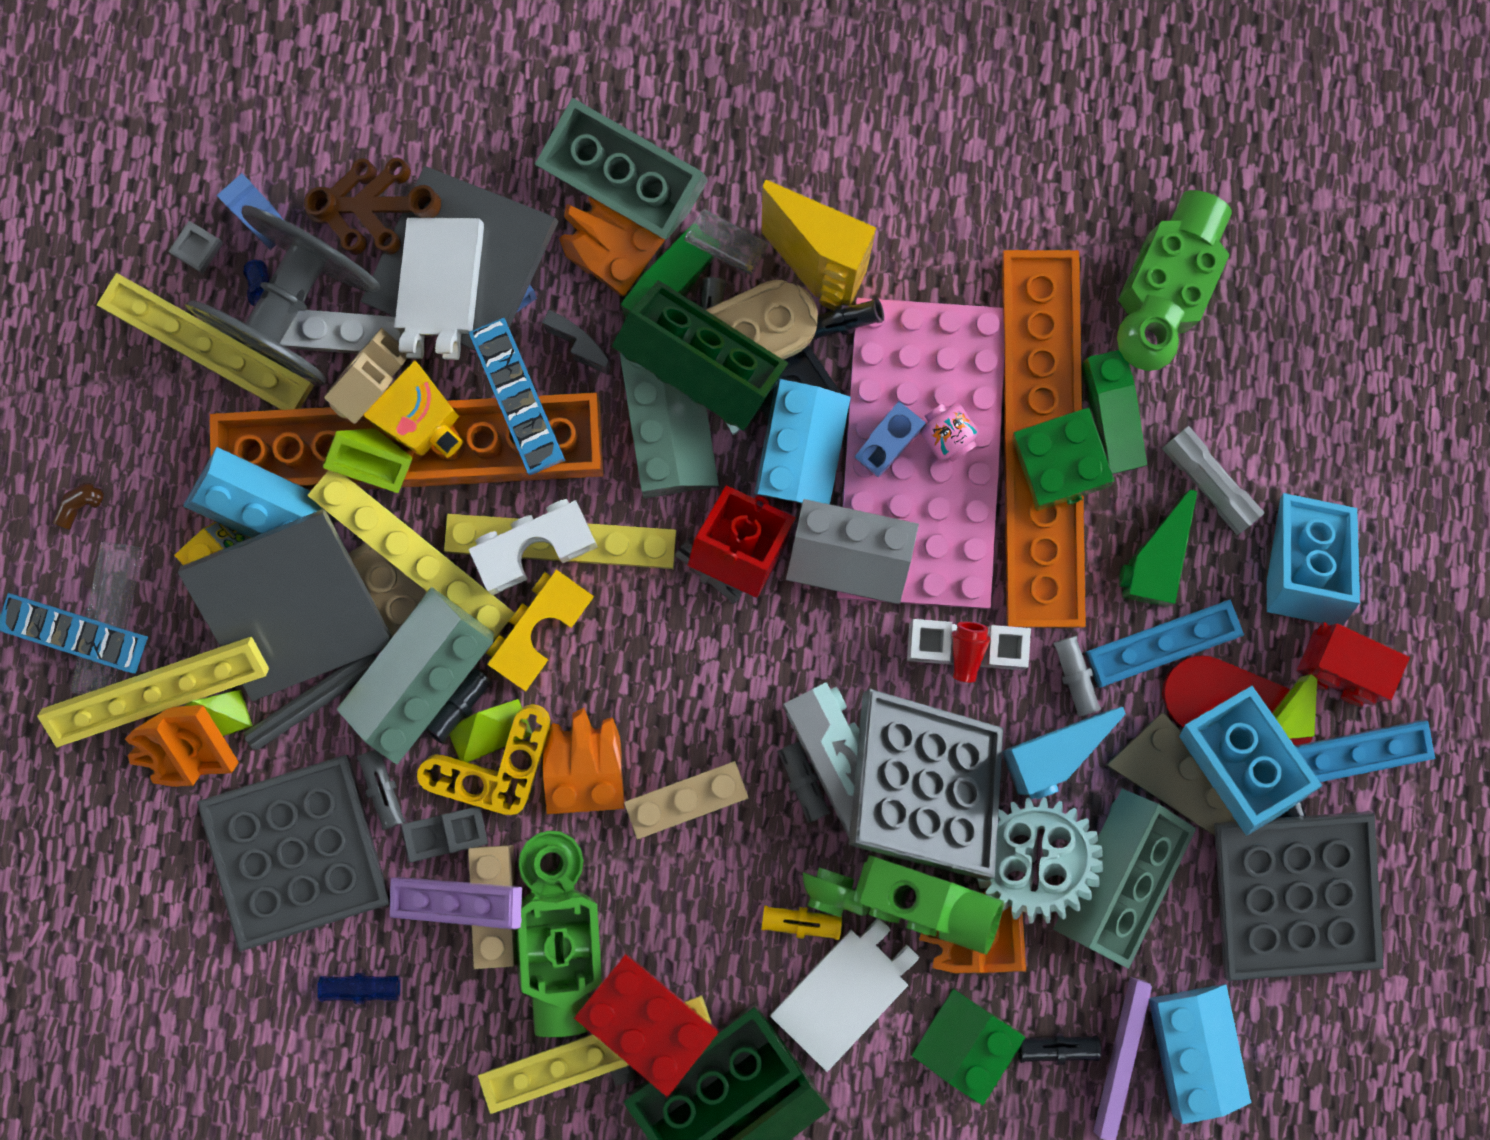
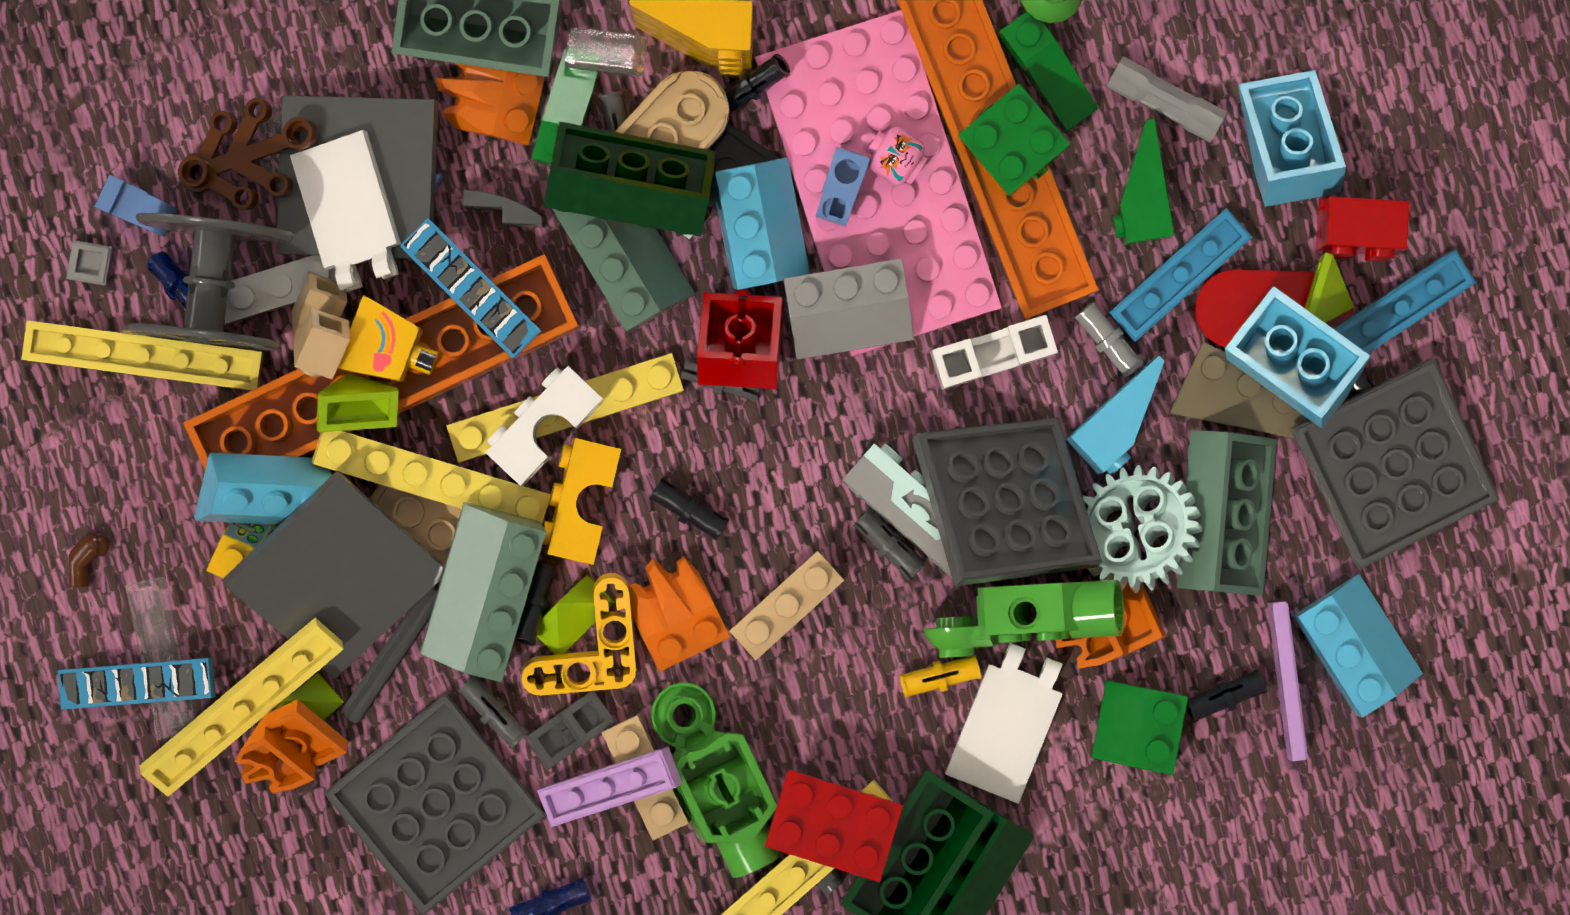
camera: 25 degrees left, 5 degrees up
(634, 676) = (689, 509): none -> black pin
(969, 647) = (996, 358): red cone -> none

